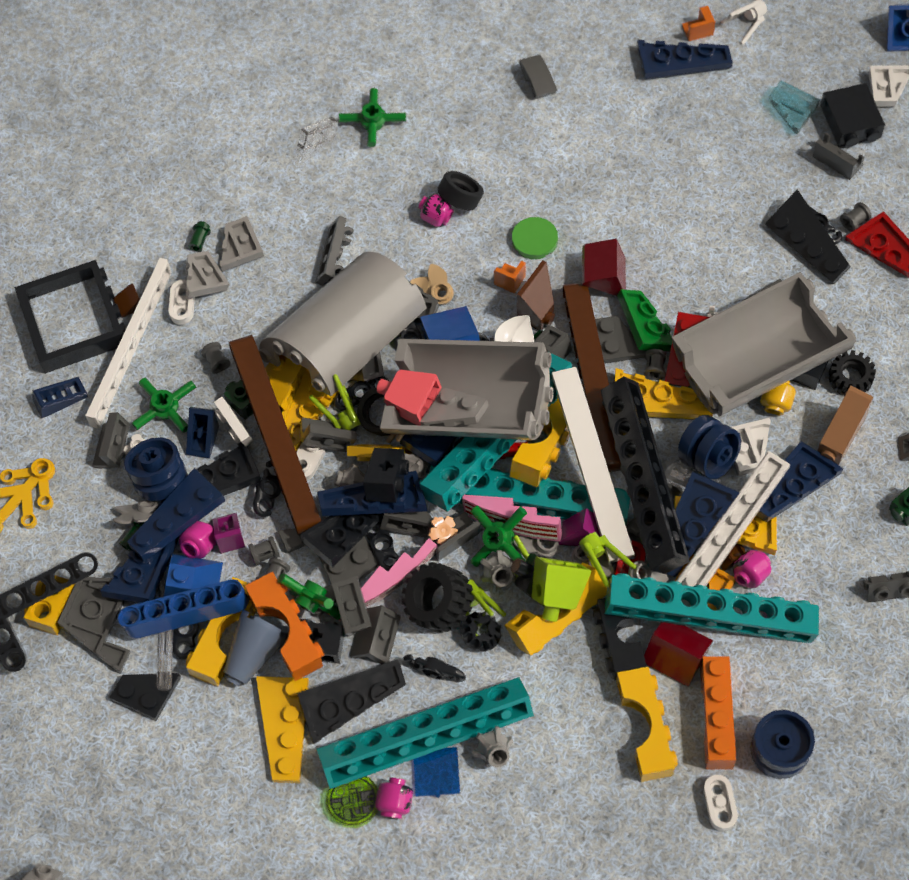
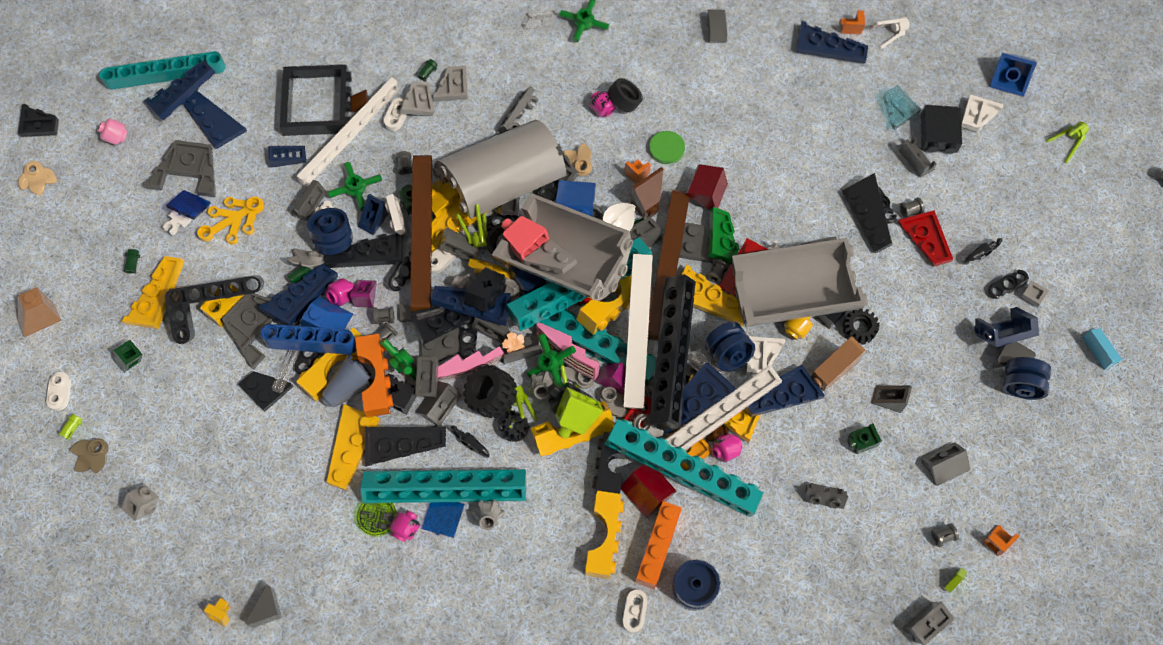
camera: 15 degrees right, 5 degrees up
(184, 506) = (334, 267): dark blue wing -> none
(594, 548) = (615, 392): lime plant -> none

